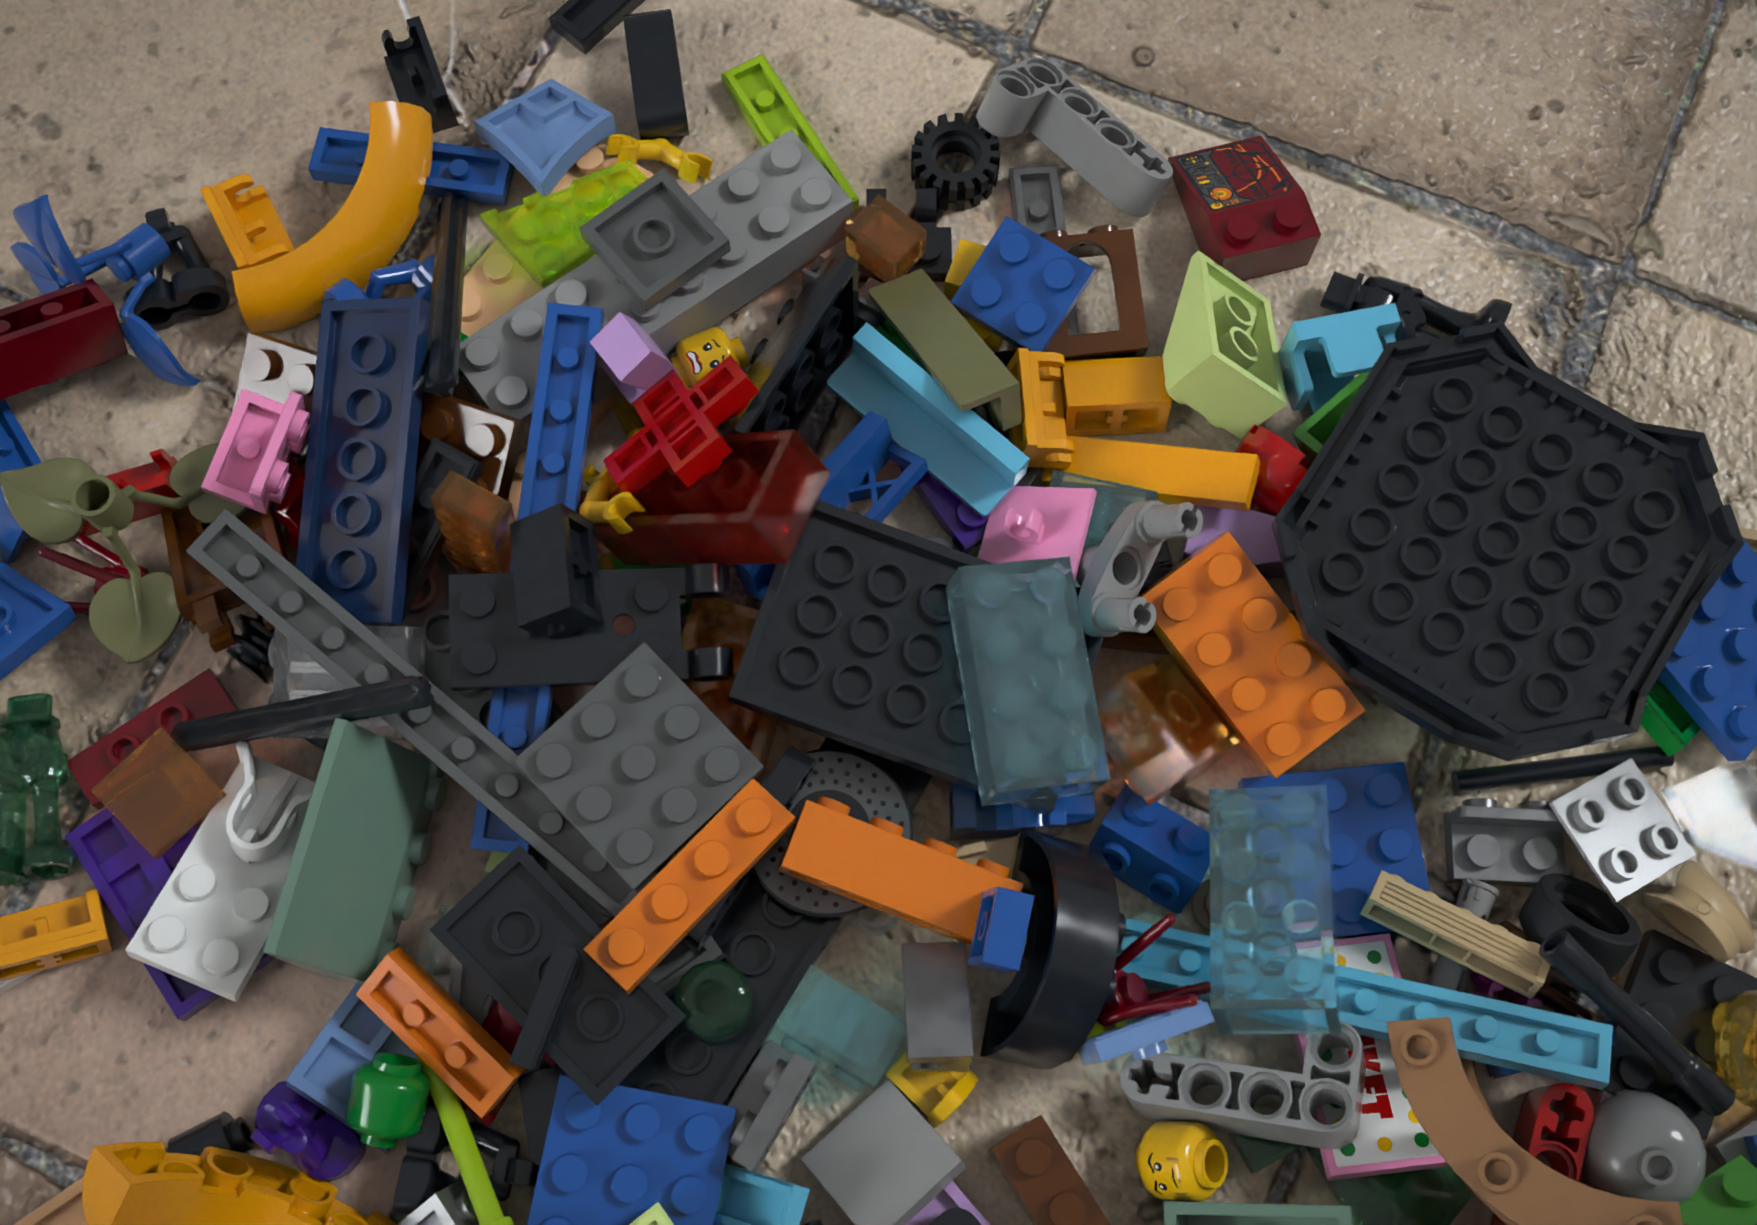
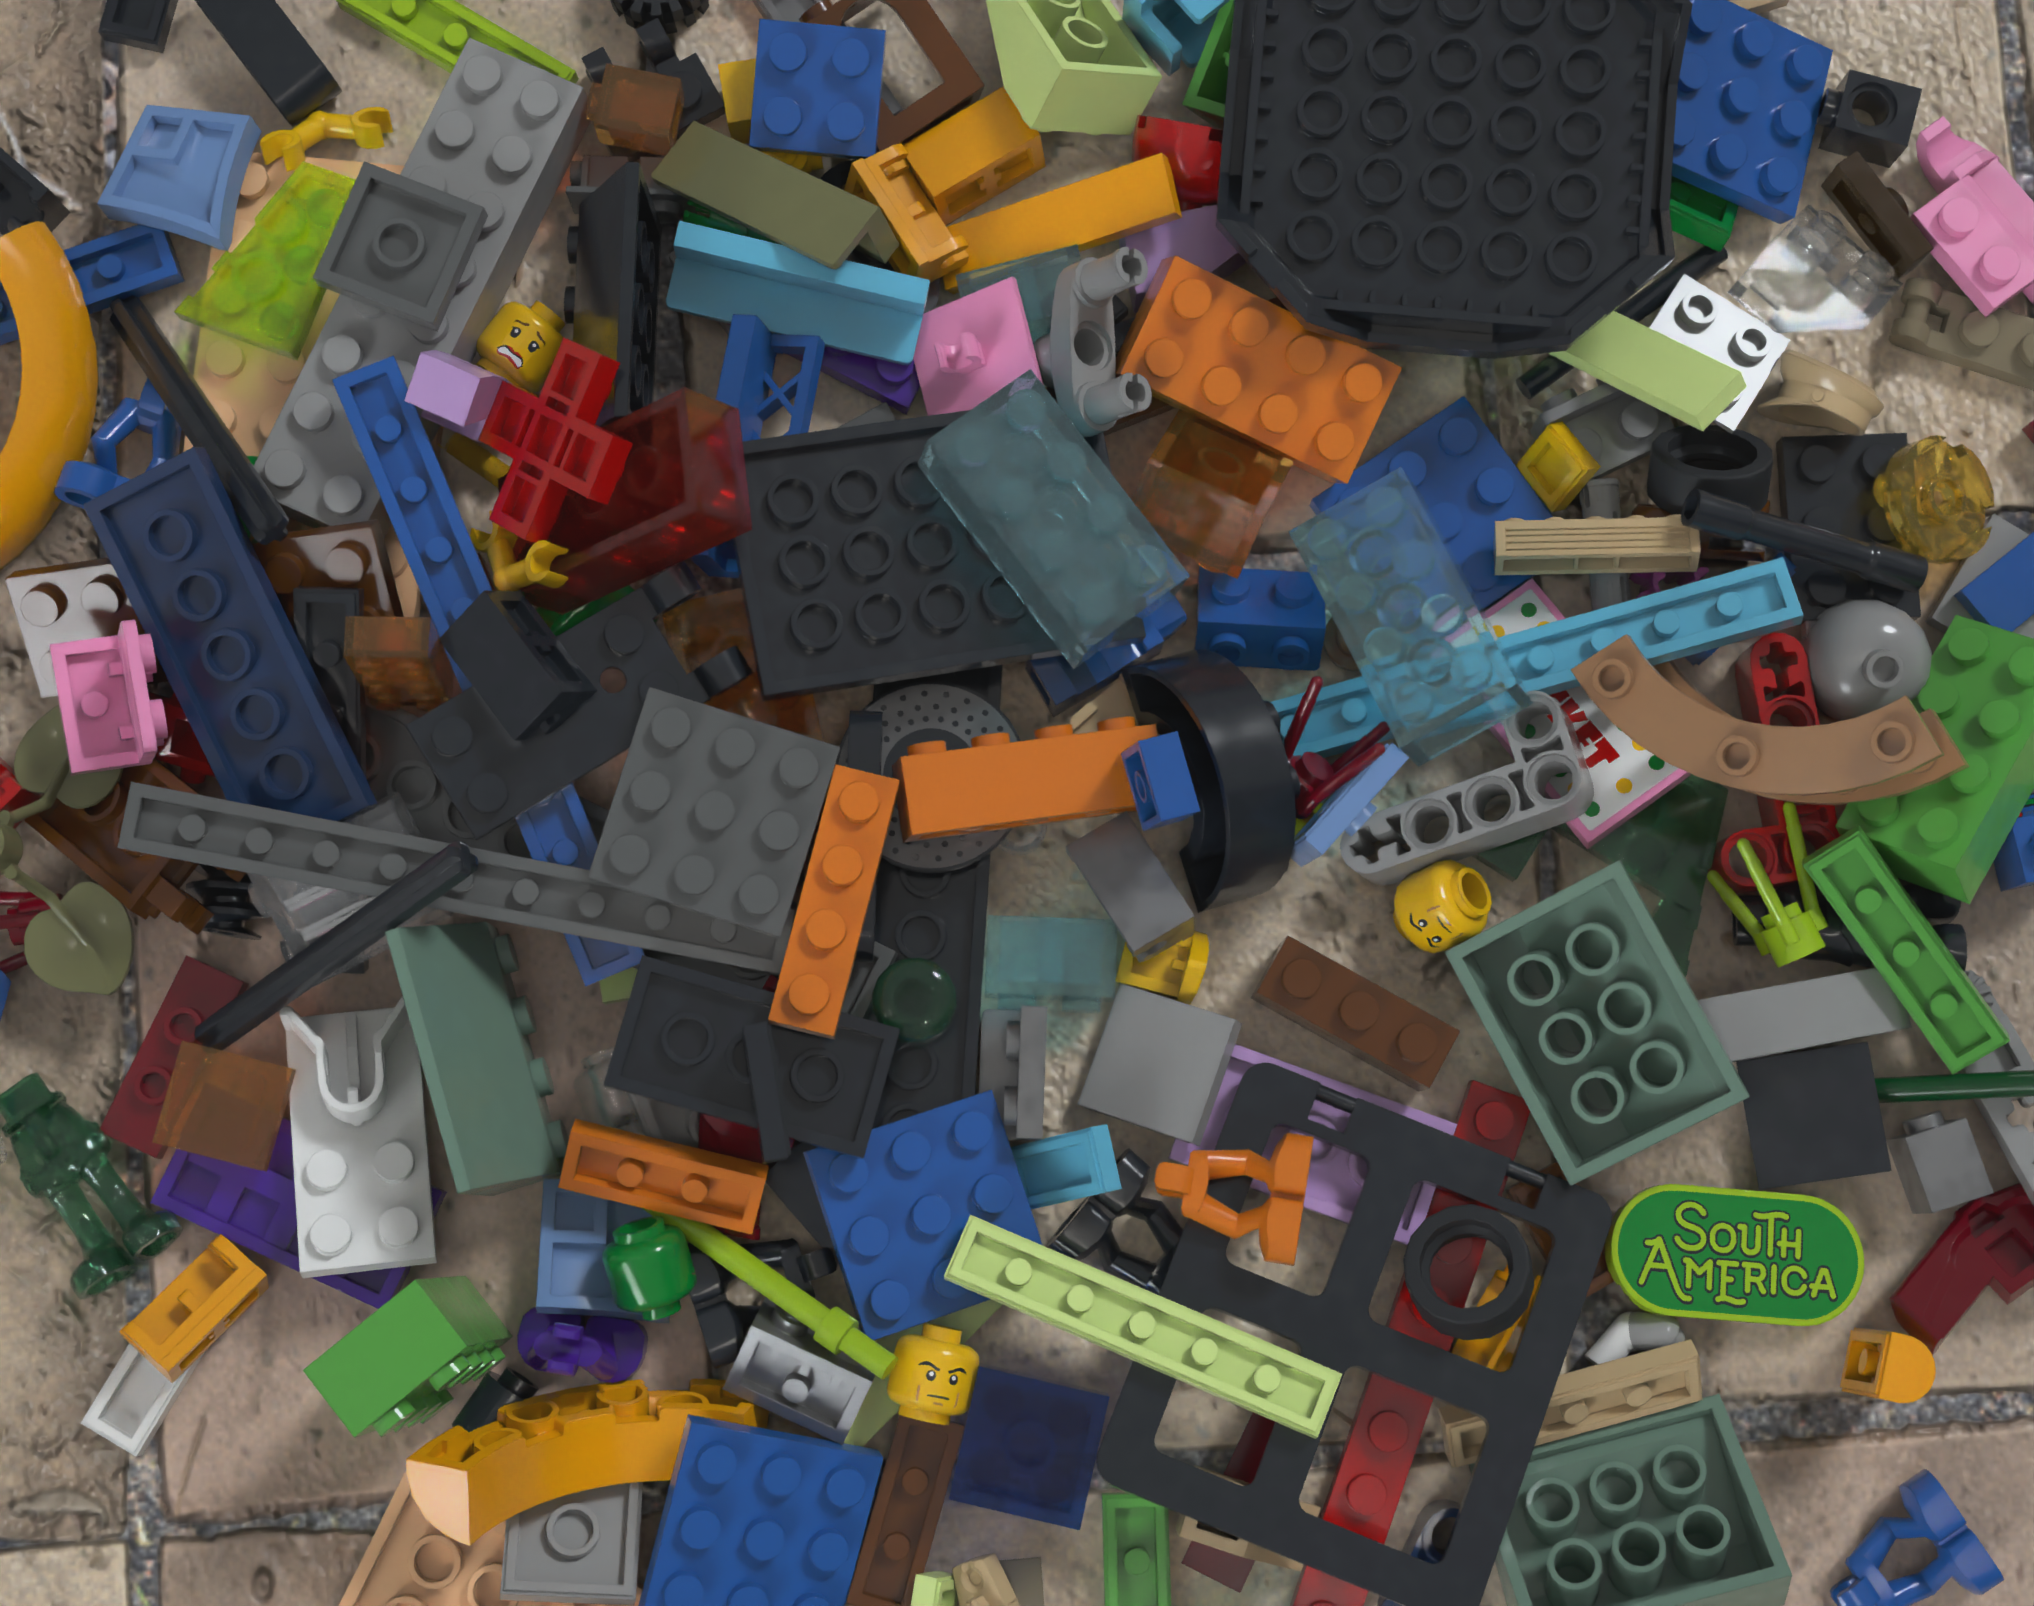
camera: 30 degrees left, 10 degrees up
(154, 1063) = (409, 1355): none -> bright green brick
(1454, 855) = (1557, 466): none -> yellow tile
(1573, 816) = (1656, 370): none -> yellowish green tile

